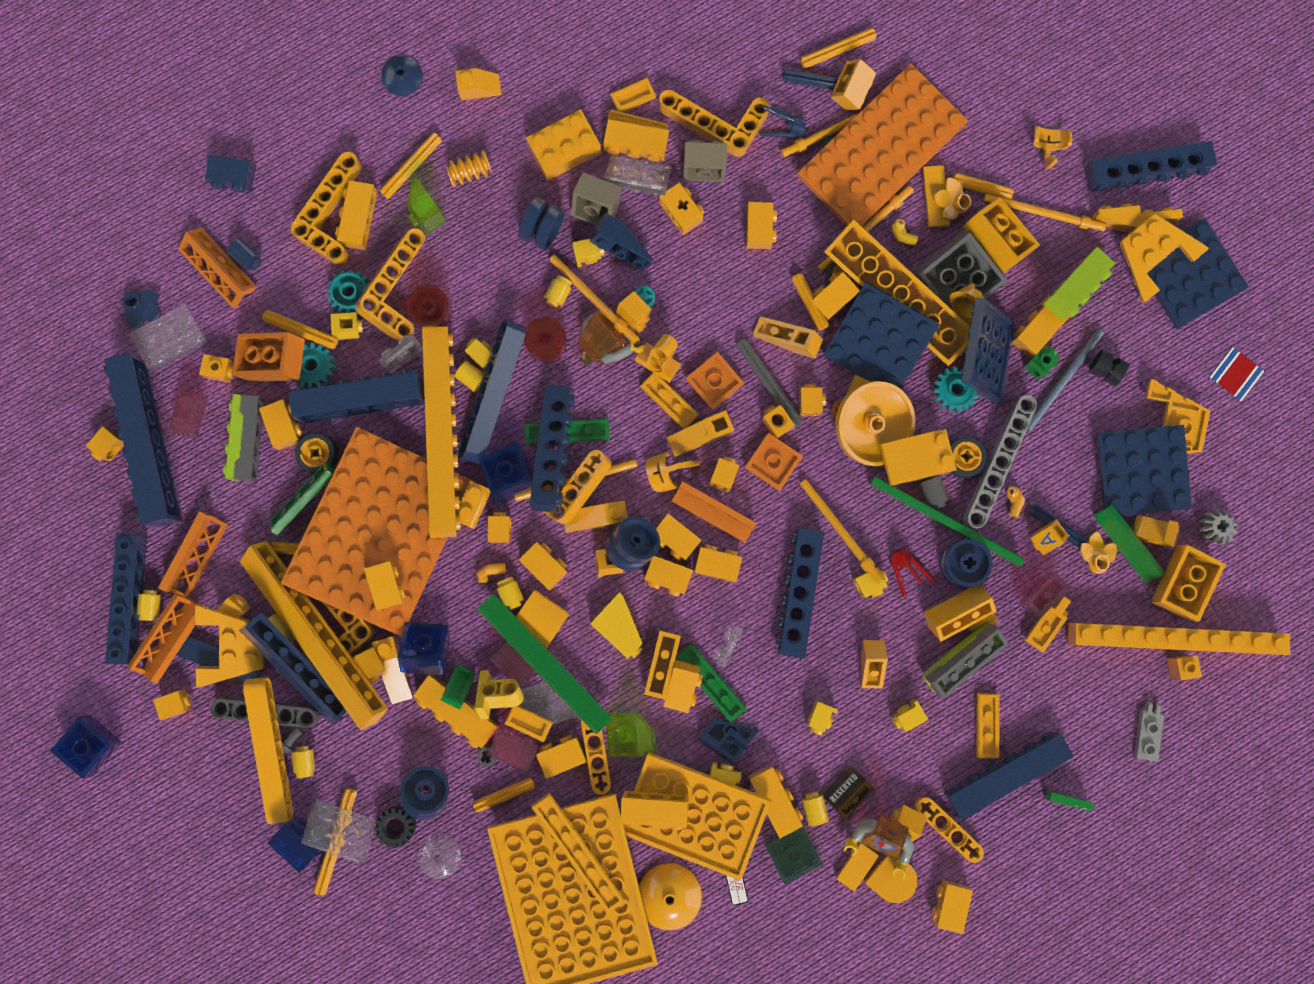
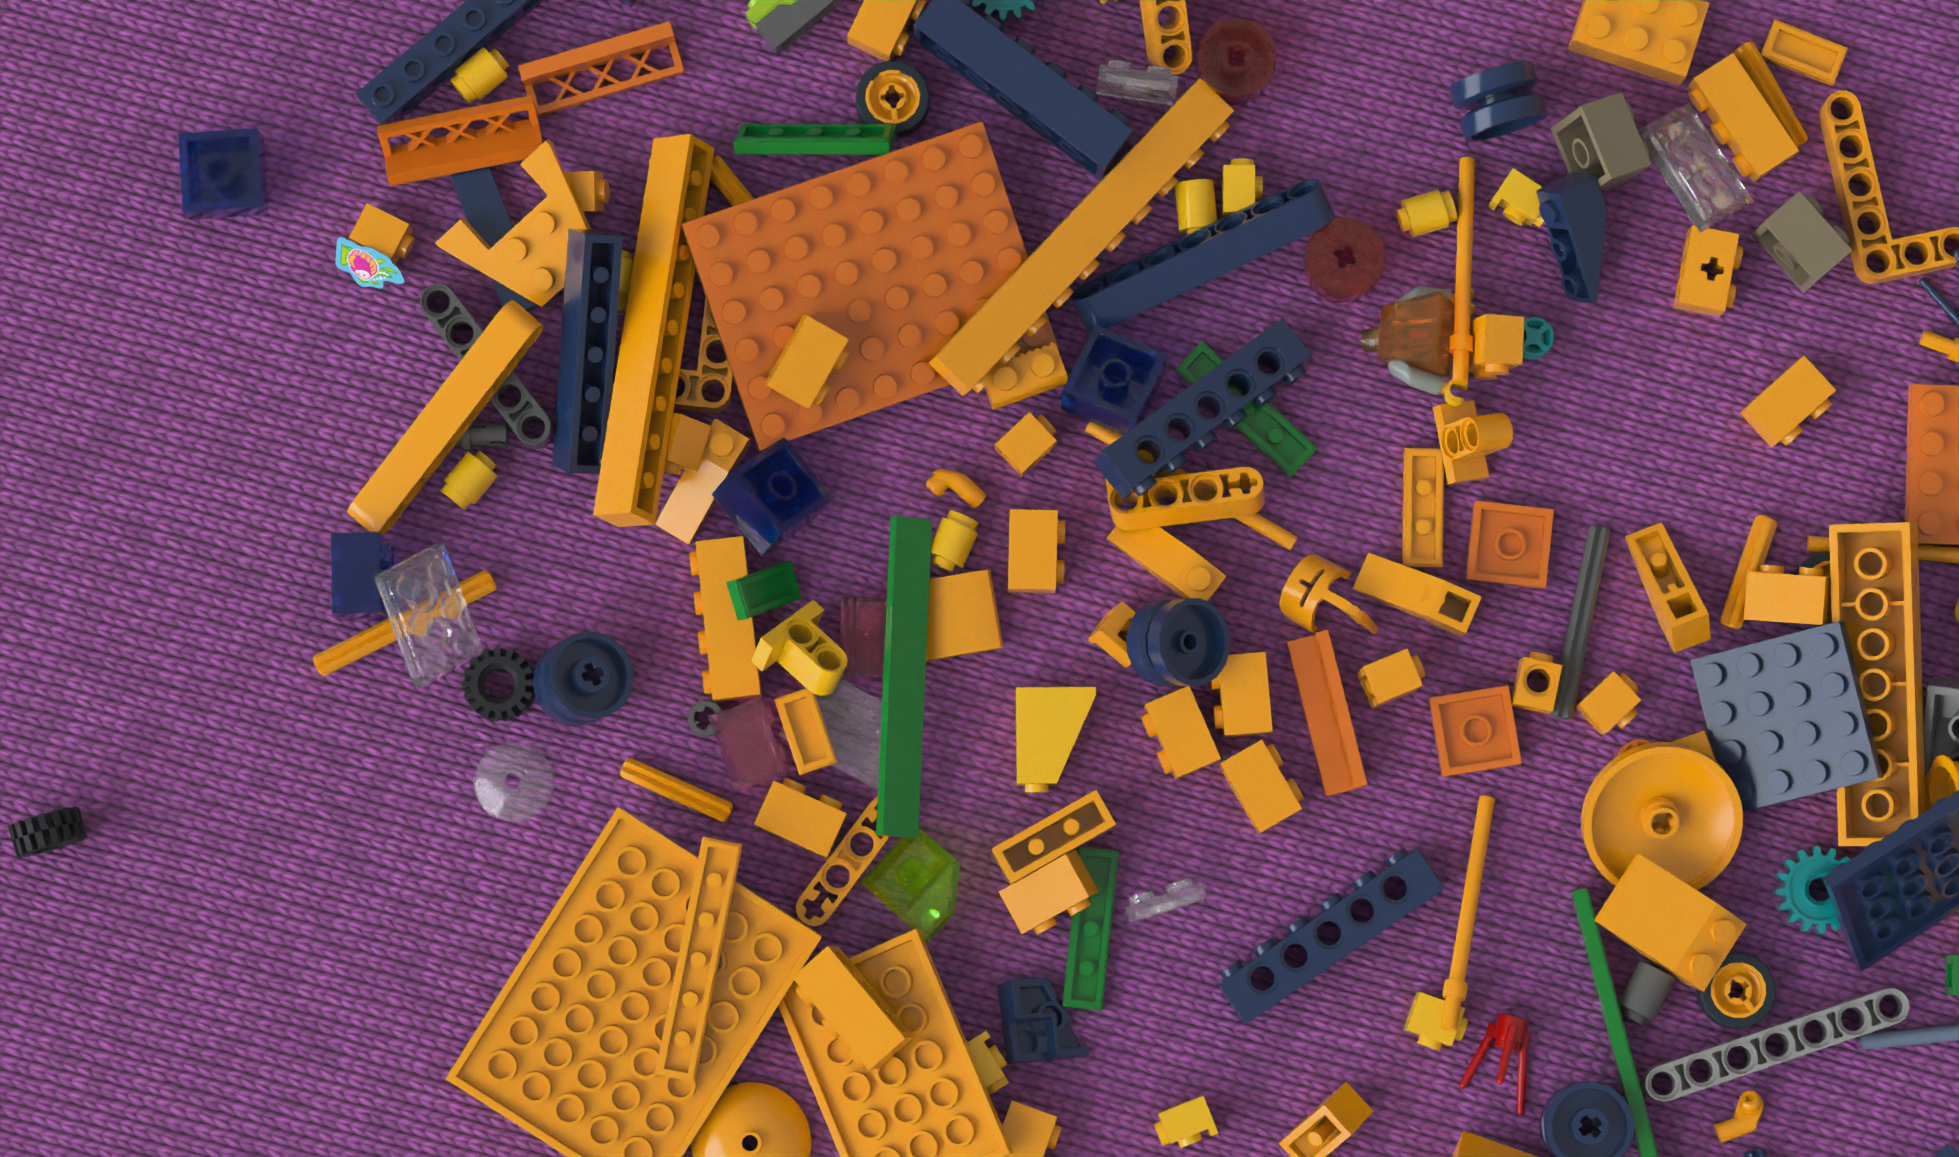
camera: 50 degrees right, 0 degrees up
(178, 722) = (366, 264): none -> sticker

